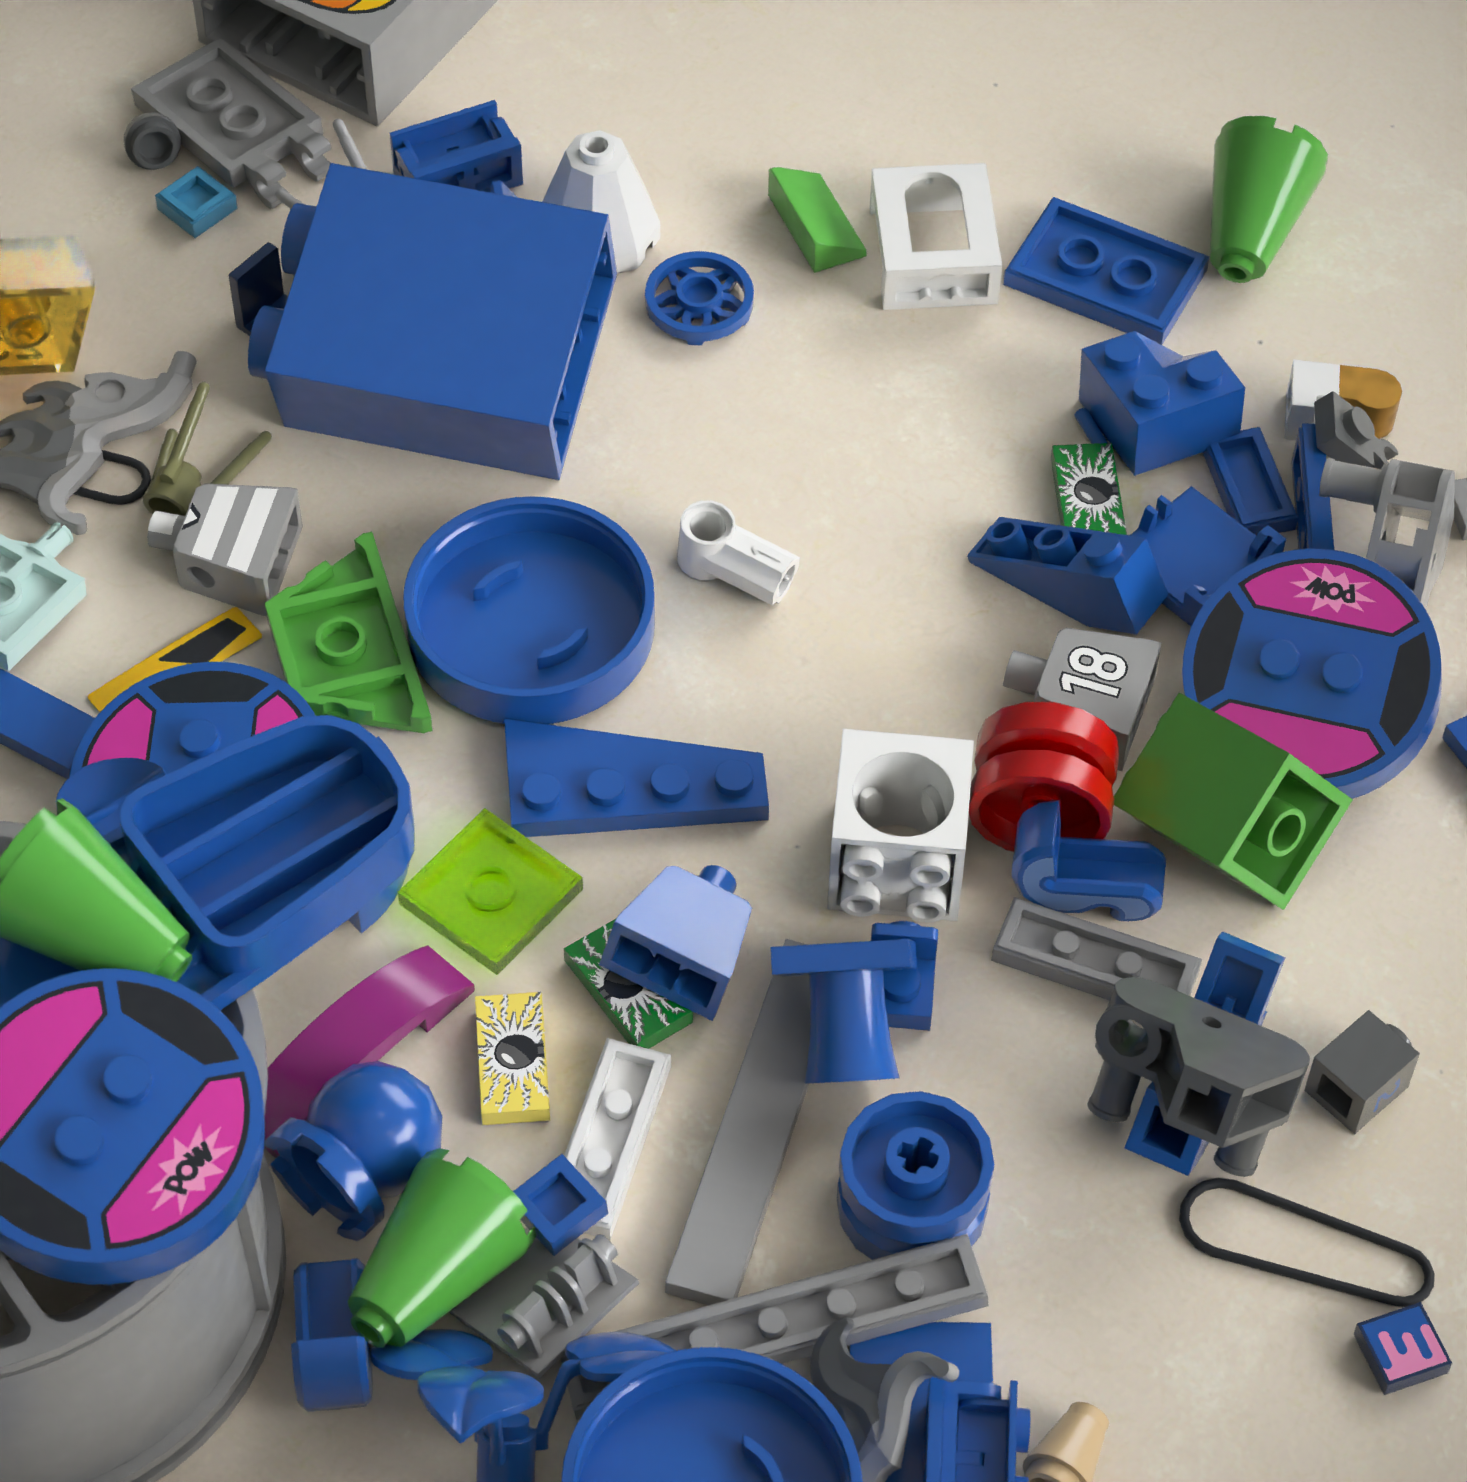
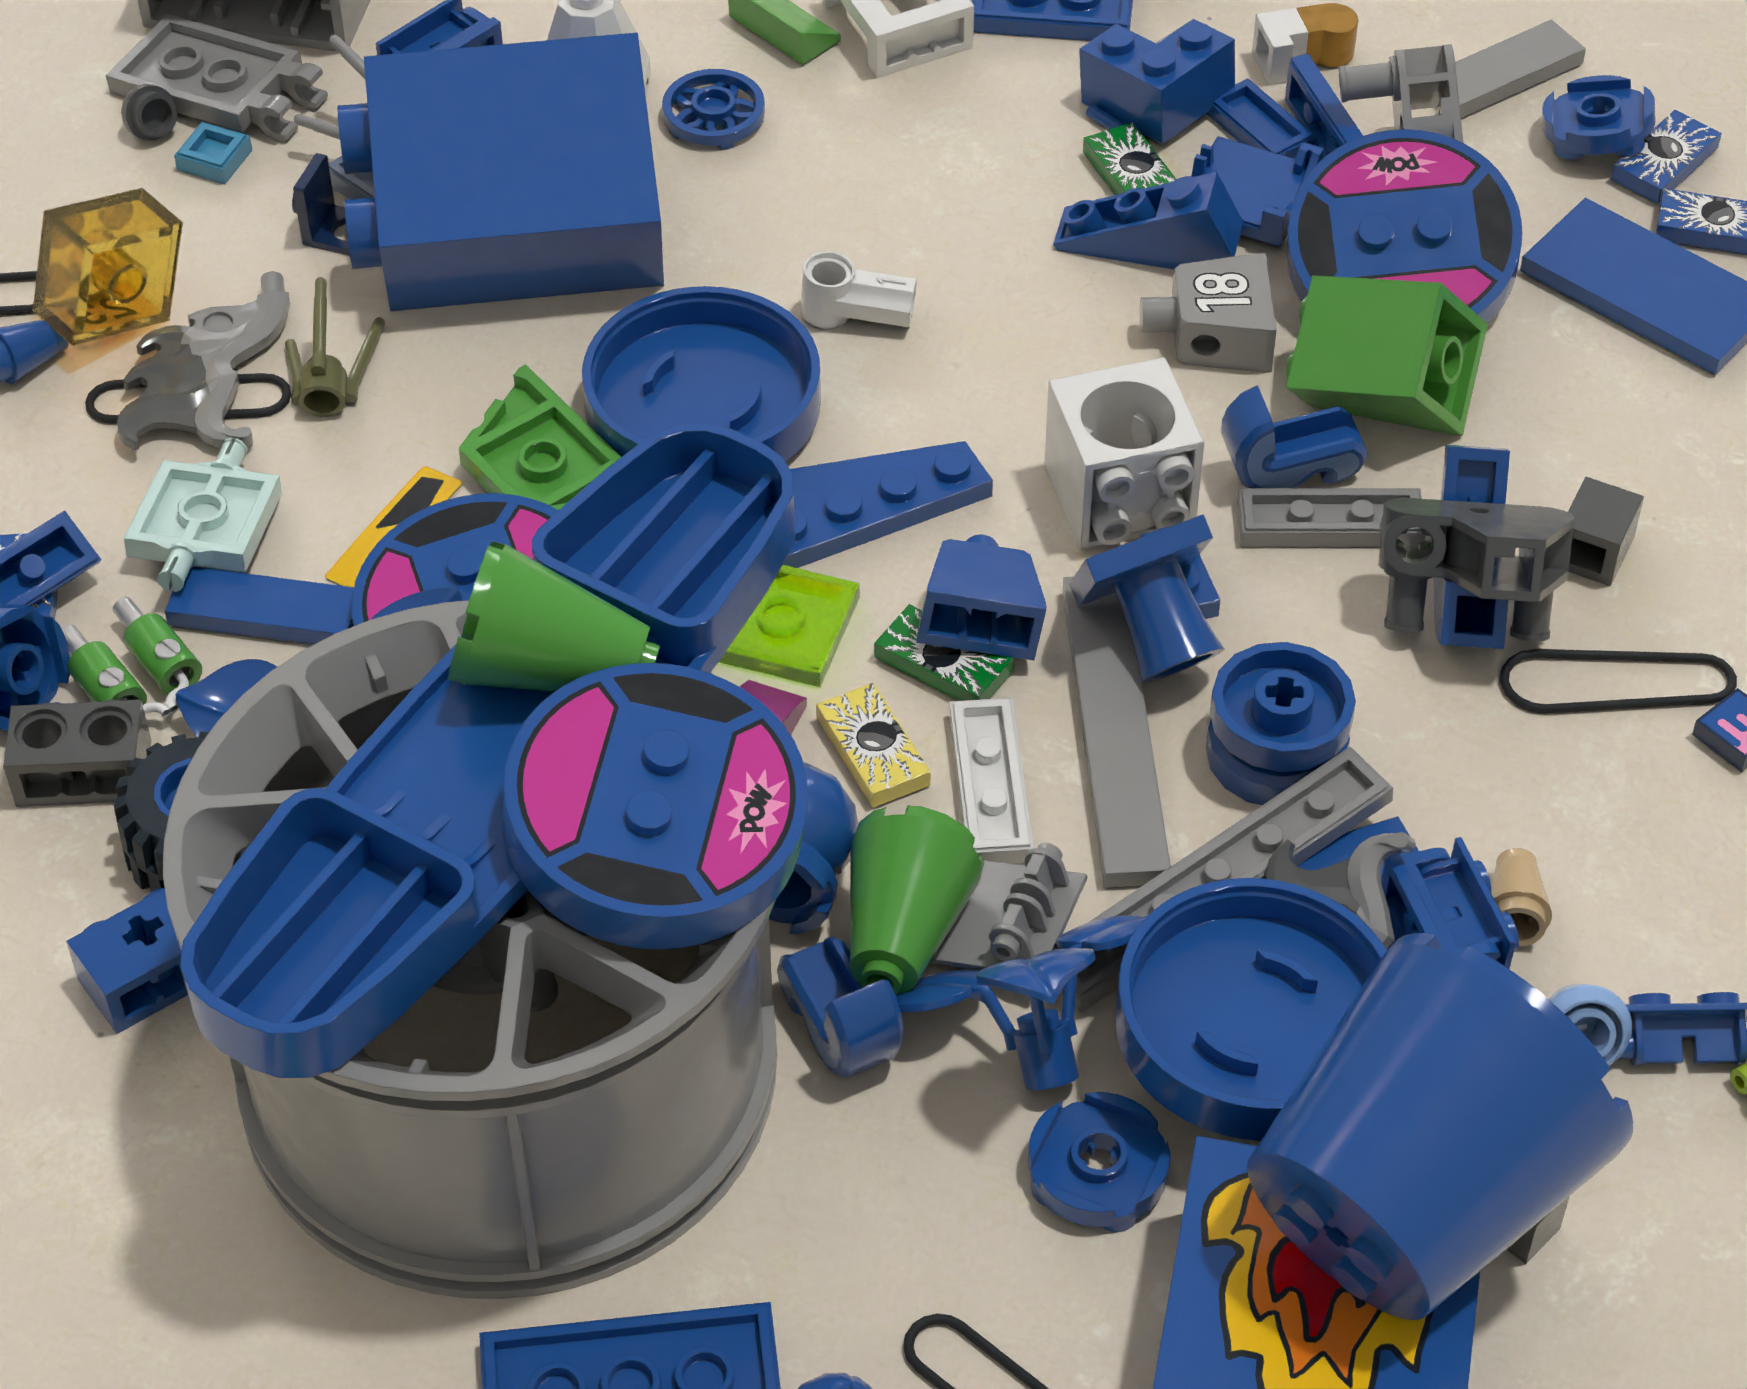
camera: 20 degrees left, 5 degrees down
(232, 542) = (399, 410): light grey torso -> none
(560, 1204) = (998, 829): blue tile -> none
(1042, 755) = (1223, 355): red wheel -> none
(1349, 434) = (1327, 51): dark grey plate -> none

